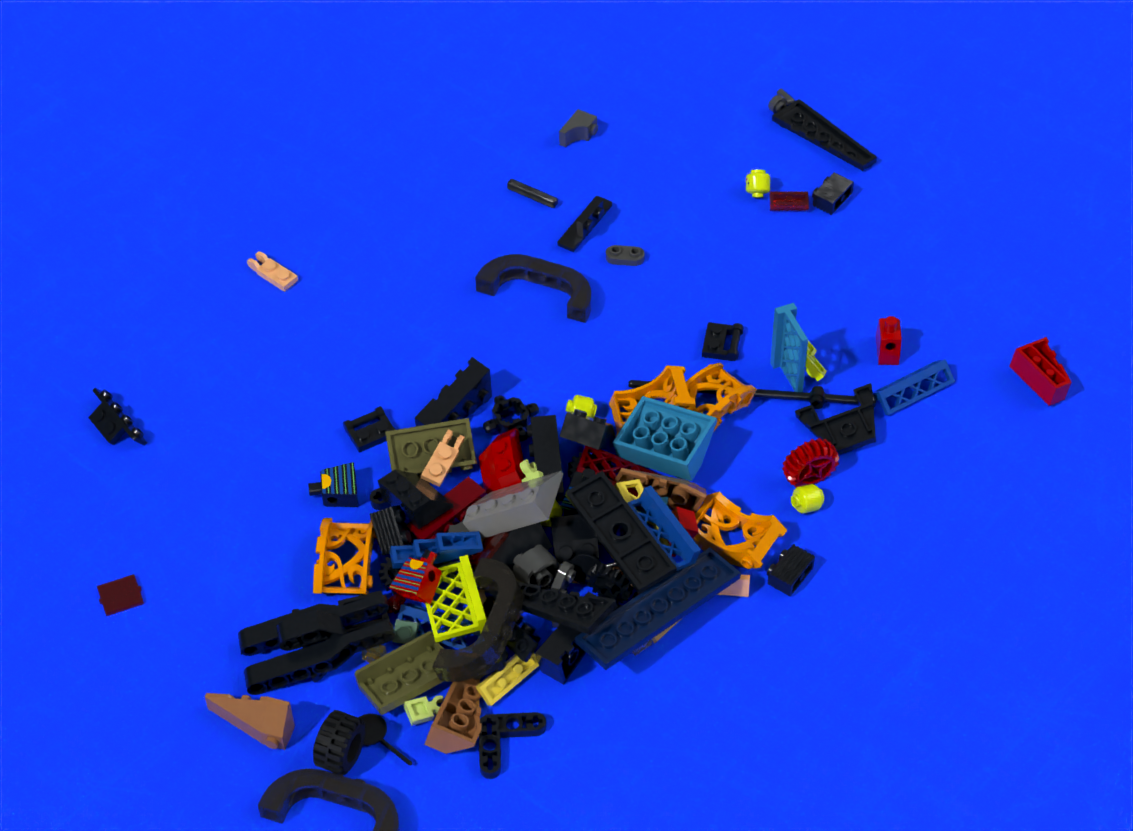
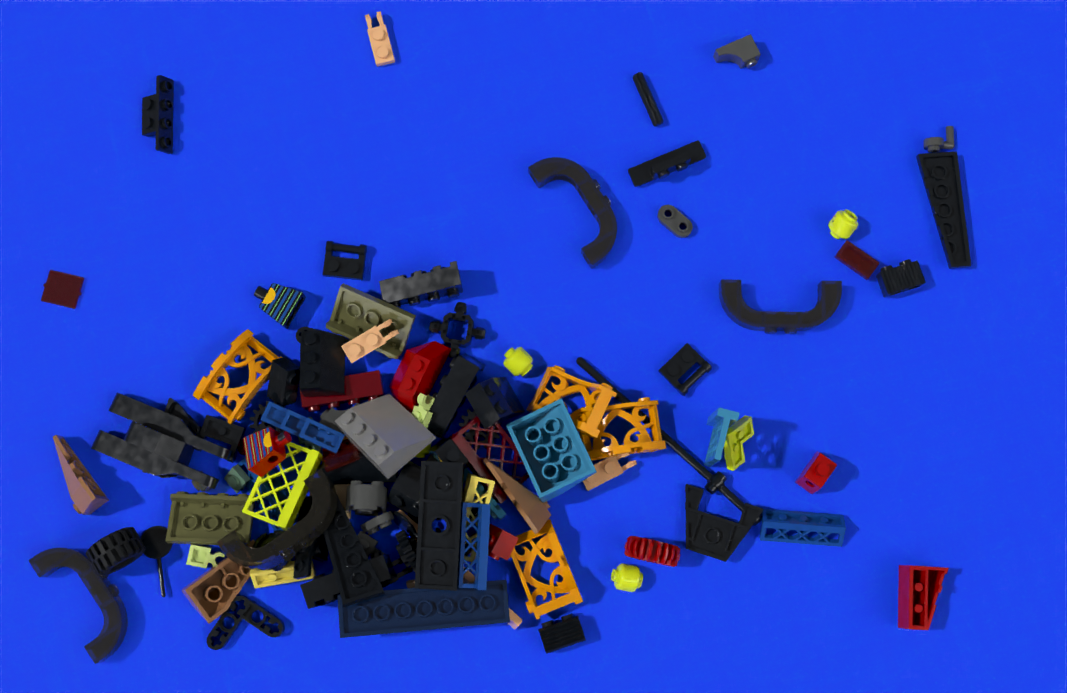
camera: 35 degrees right, 30 degrees up
(722, 441) = (607, 470): none -> light nougat hinge
(761, 271) = (770, 322): none -> clear smoke arch

